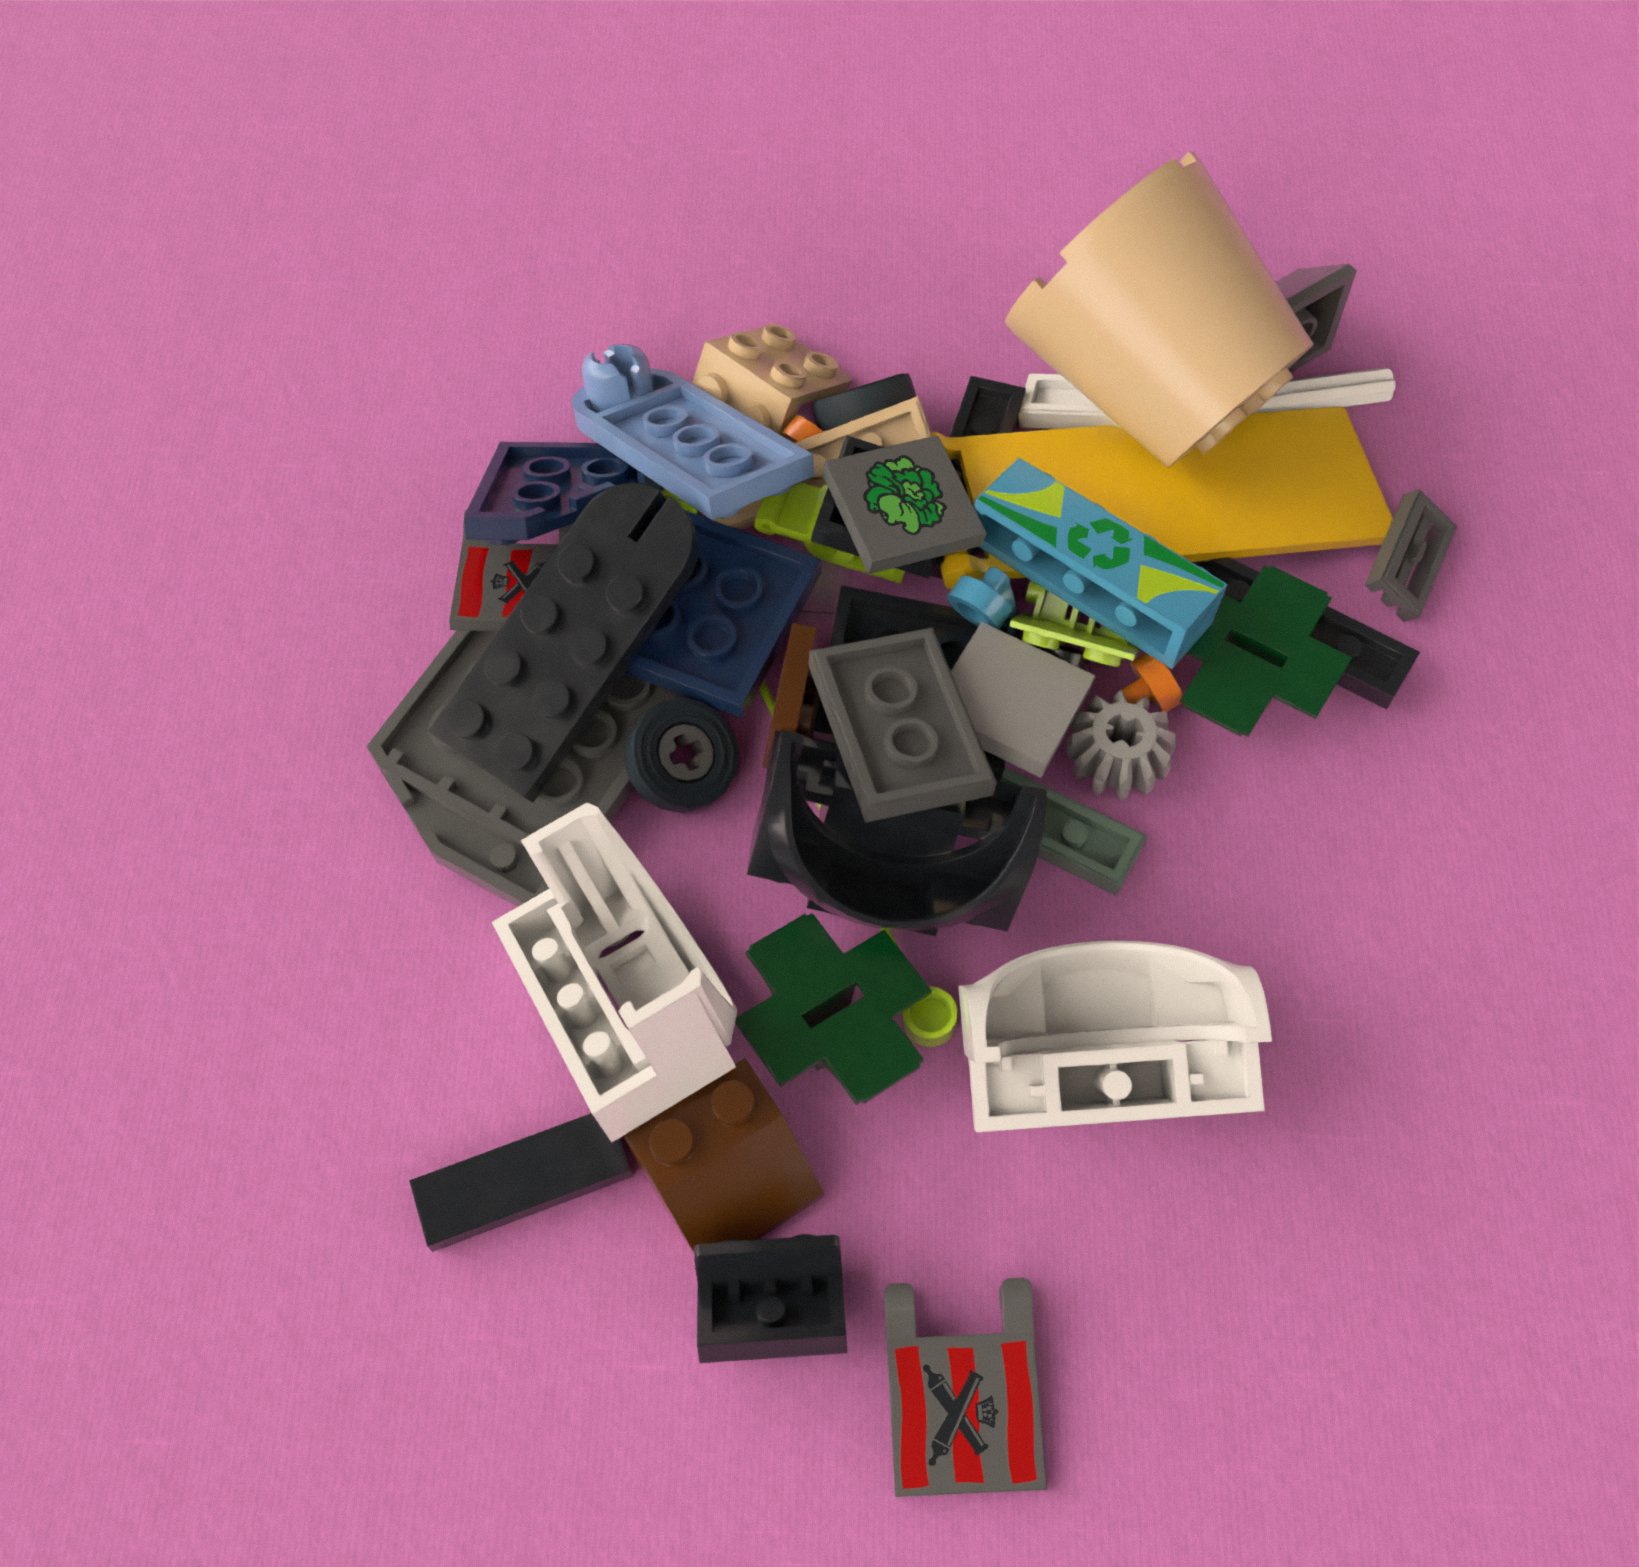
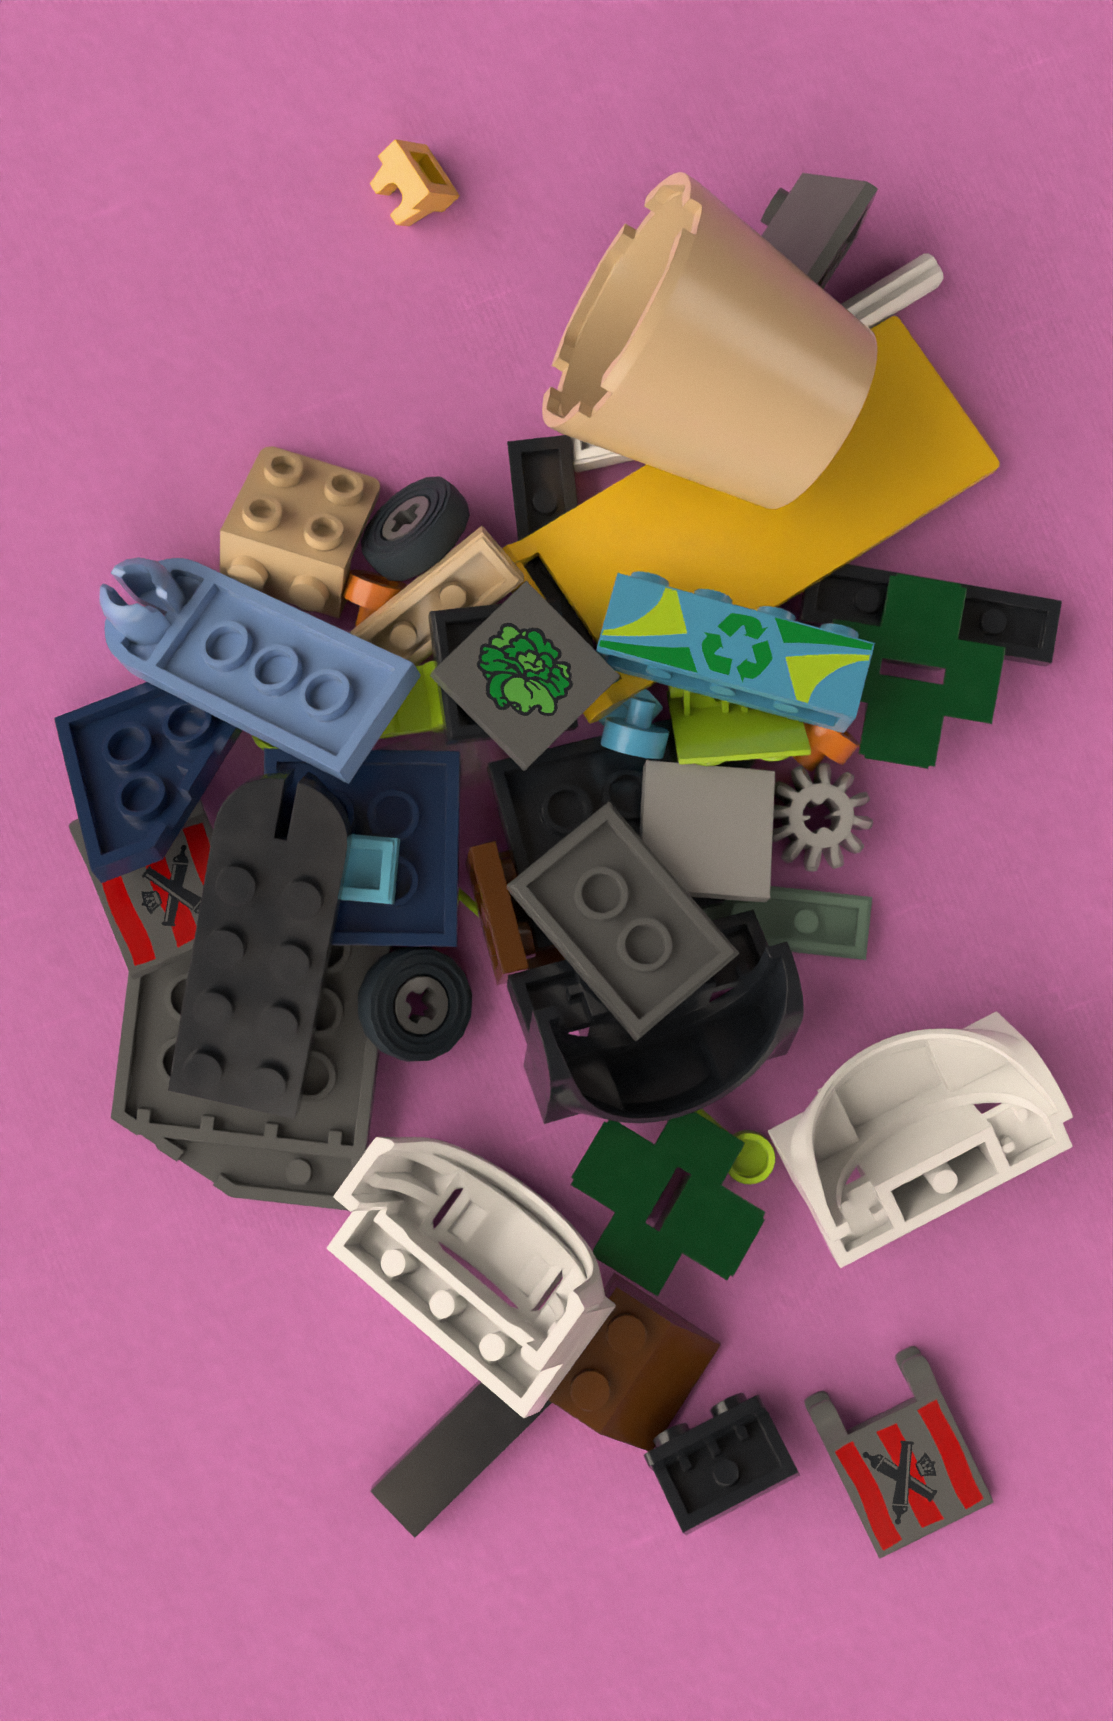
camera: 30 degrees left, 25 degrees up
(696, 614) = (371, 869): none -> medium azure tile
(976, 195) = (419, 179): none -> tile
(1406, 546) = (1019, 483): dark grey tile -> none

